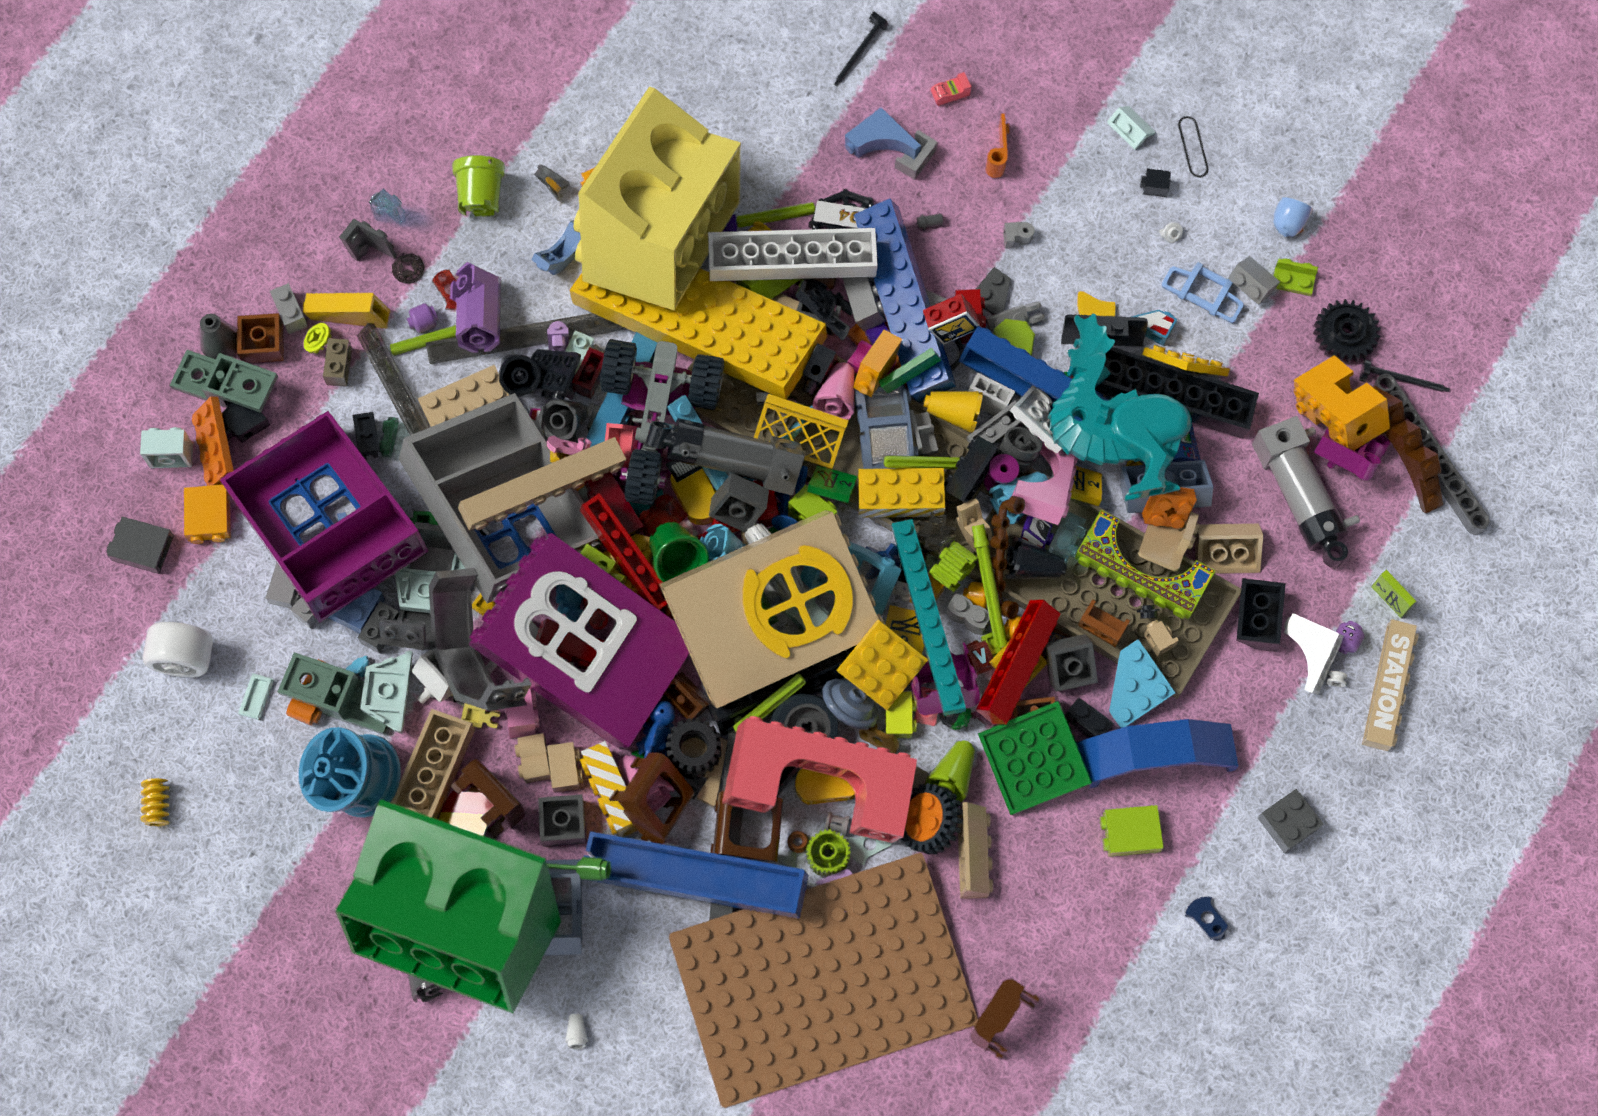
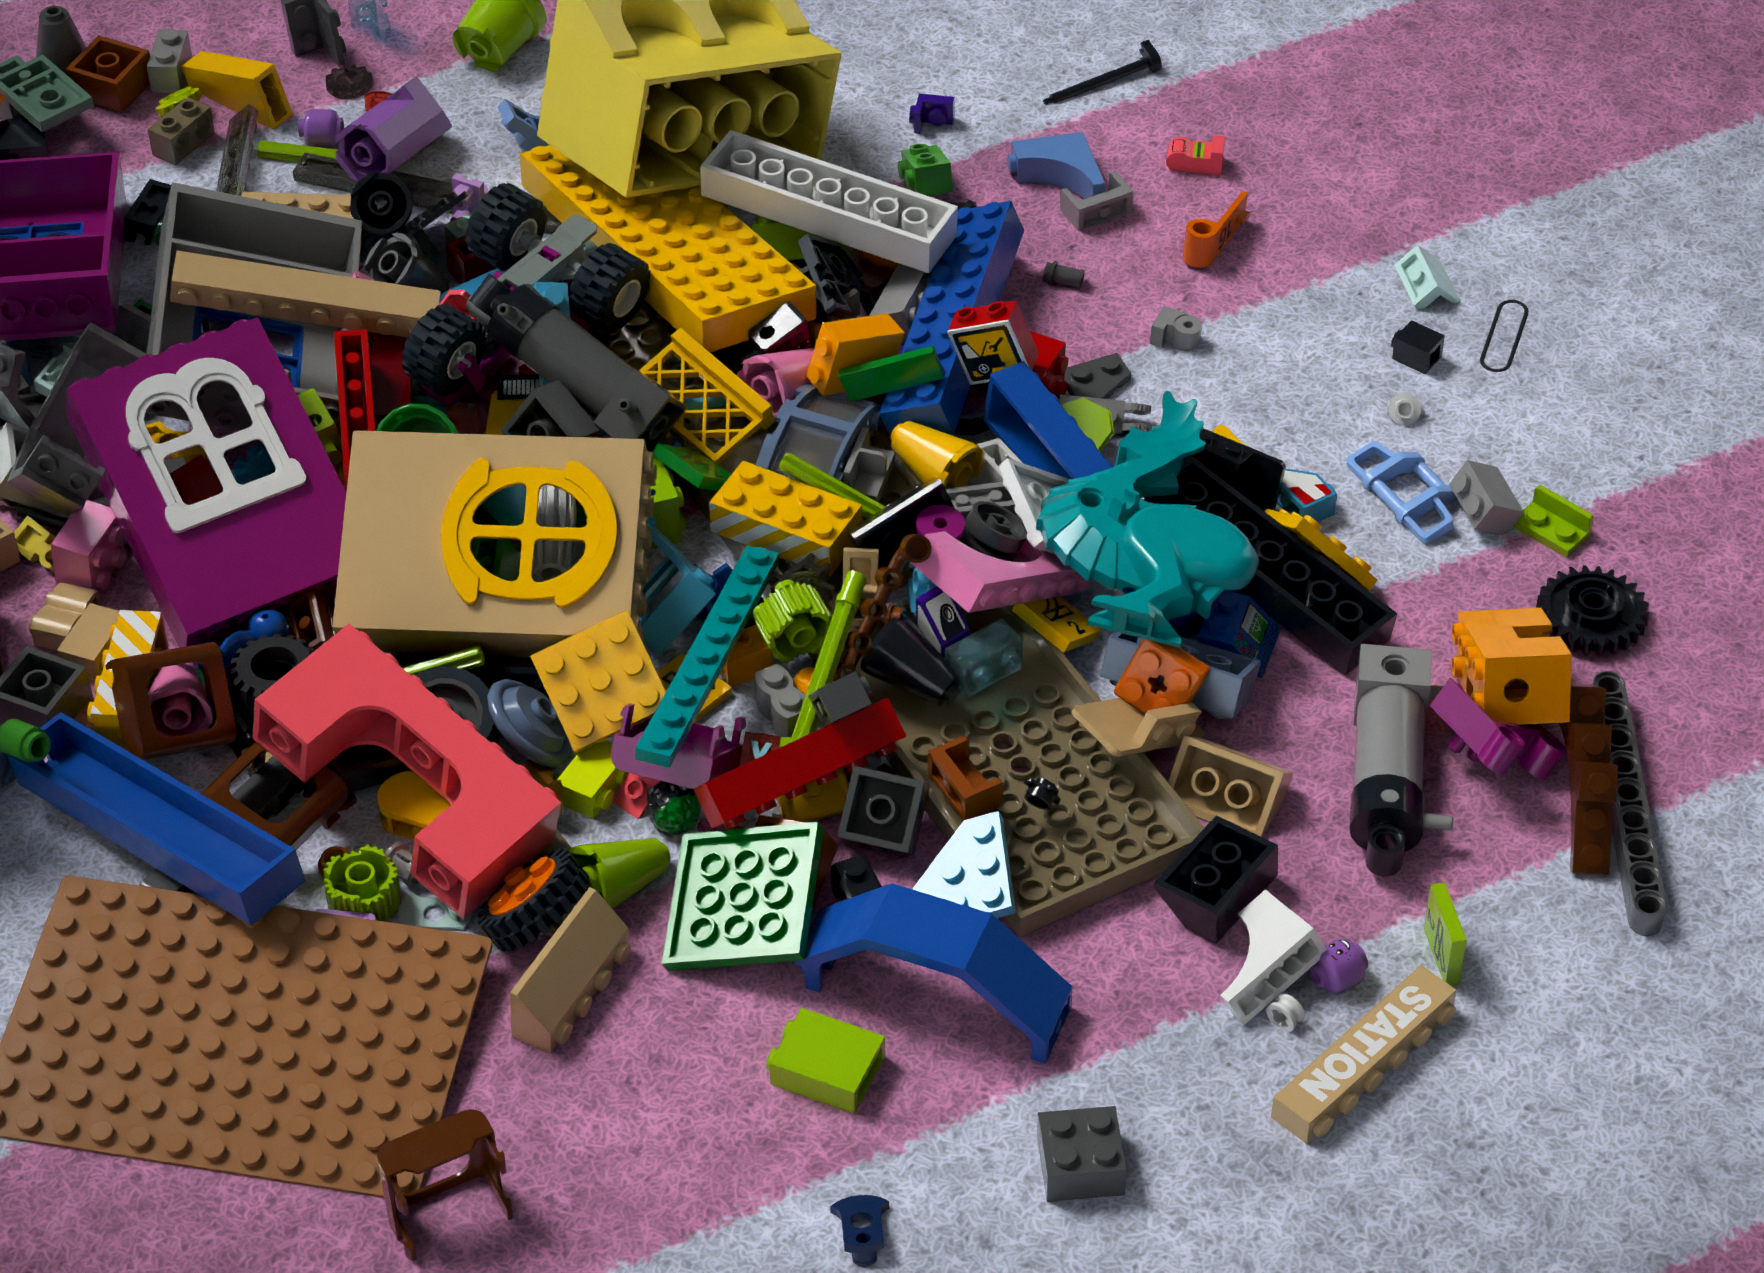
camera: 30 degrees right, 25 degrees down
(779, 125) = (933, 110): none -> dark purple bracket
(808, 181) = (926, 170): none -> bright green brick
(1020, 613) = (841, 698): none -> dark grey brick
(1160, 637) = (1037, 831): tan brick -> none
(1176, 593) = (1100, 788): arch -> none
(1291, 216) = (1592, 449): light blue piece -> none
(1366, 369) = (1595, 663): black piece -> none

